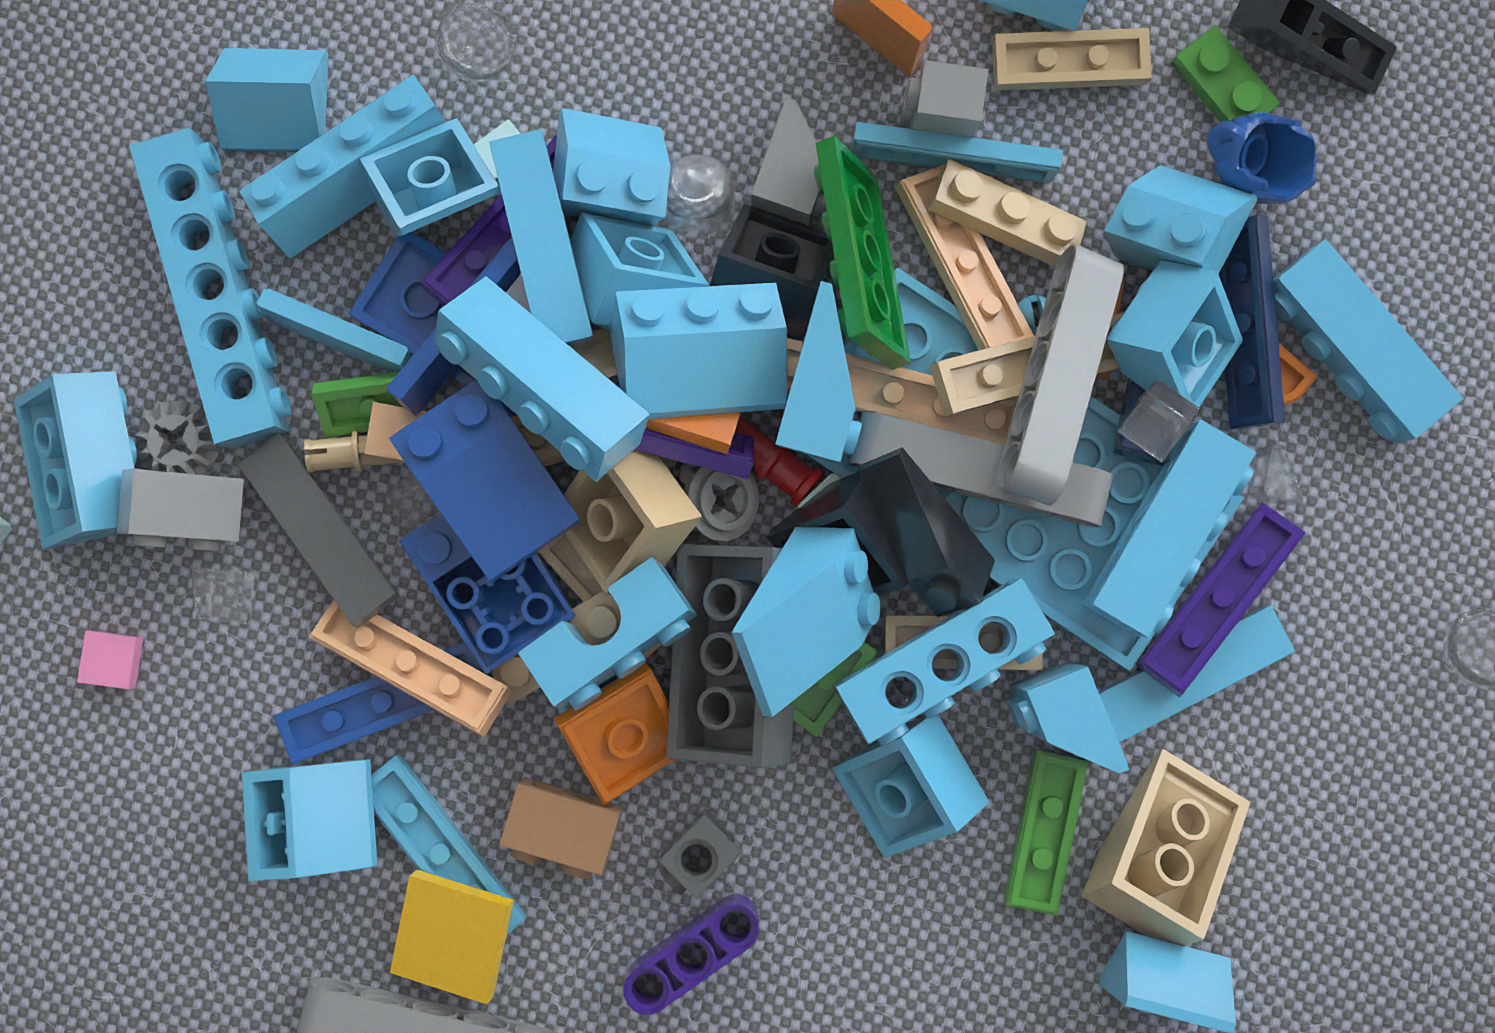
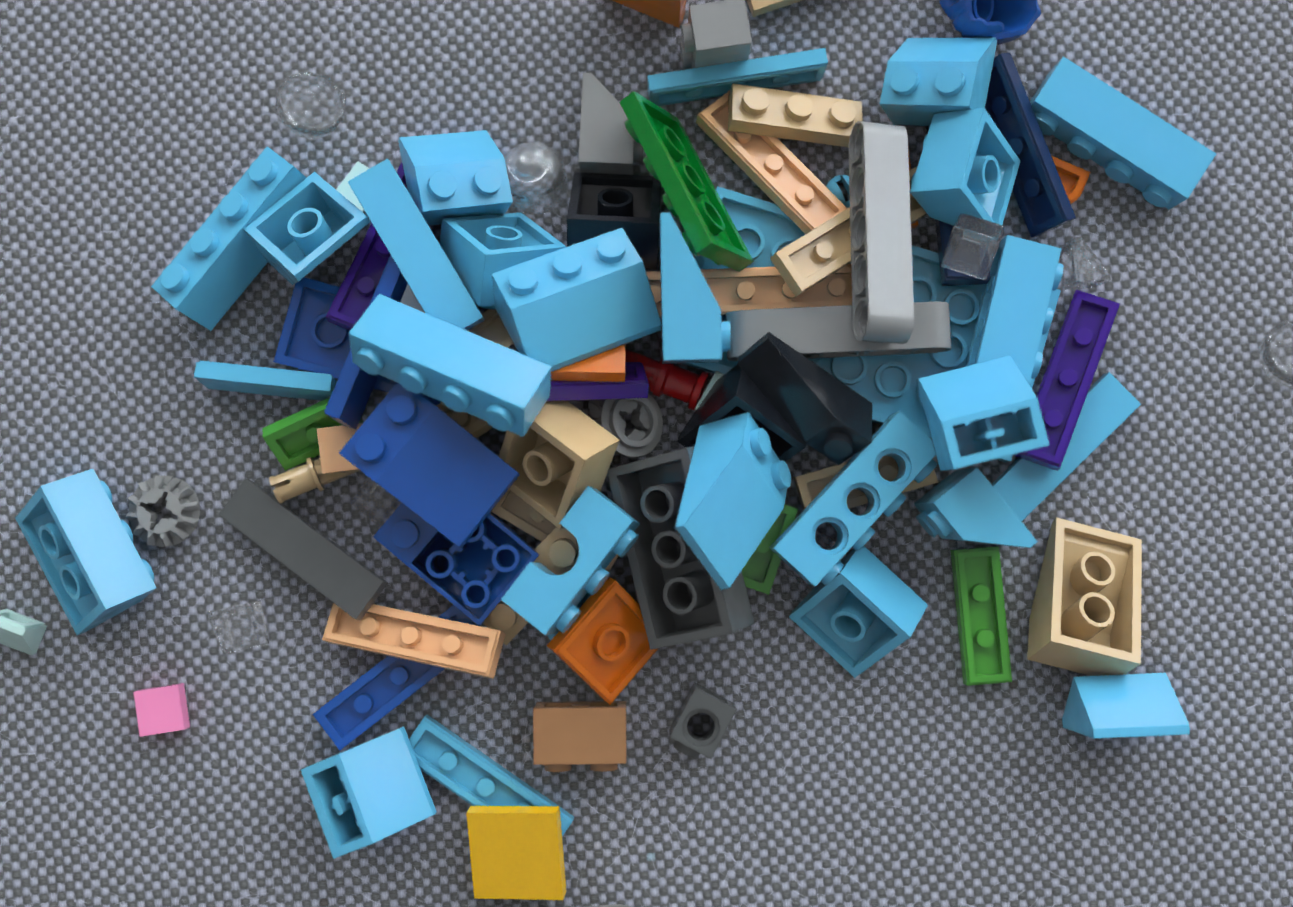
camera: 15 degrees left, 0 degrees up
(162, 170) = (82, 288): medium azure brick -> none
(179, 506) = (180, 564): light grey brick -> none
(268, 98) = (152, 203): medium azure slope -> none
(680, 976) = (717, 827): dark purple beam -> none
(1109, 609) = (981, 413): none -> medium azure slope

